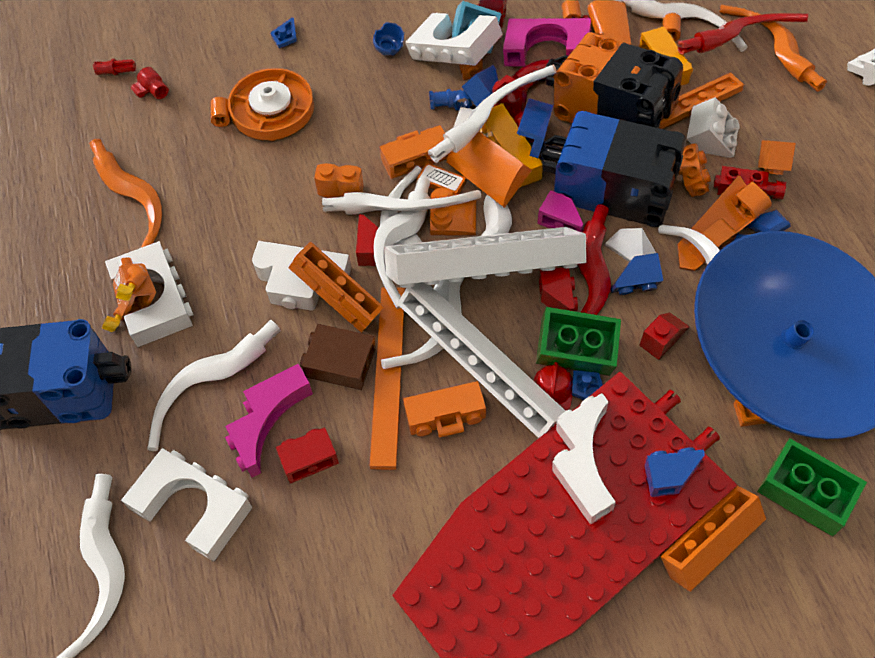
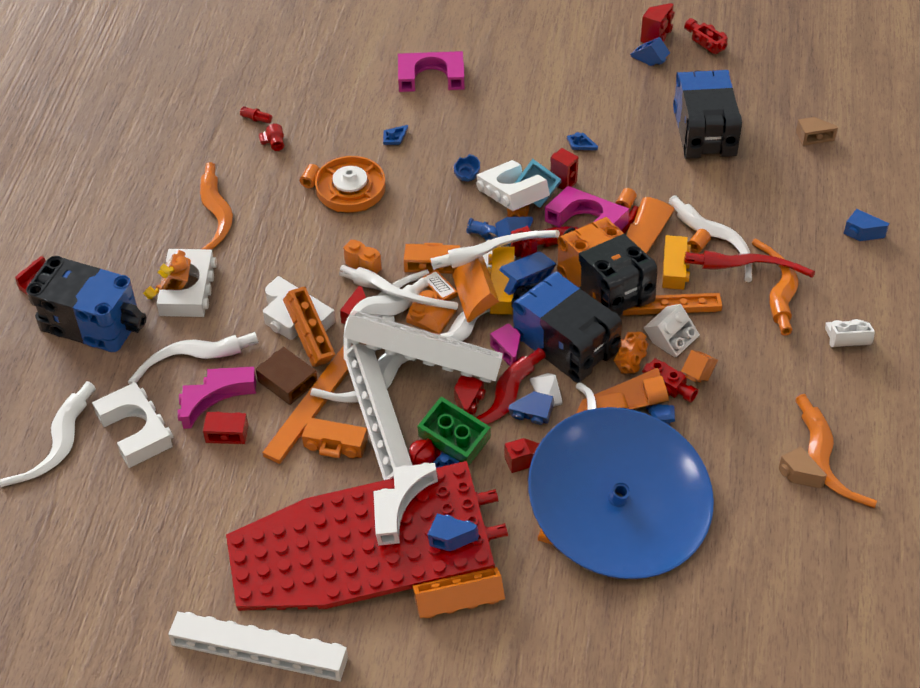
camera: 25 degrees right, 10 degrees down
(812, 487) = (551, 592): green brick -> none

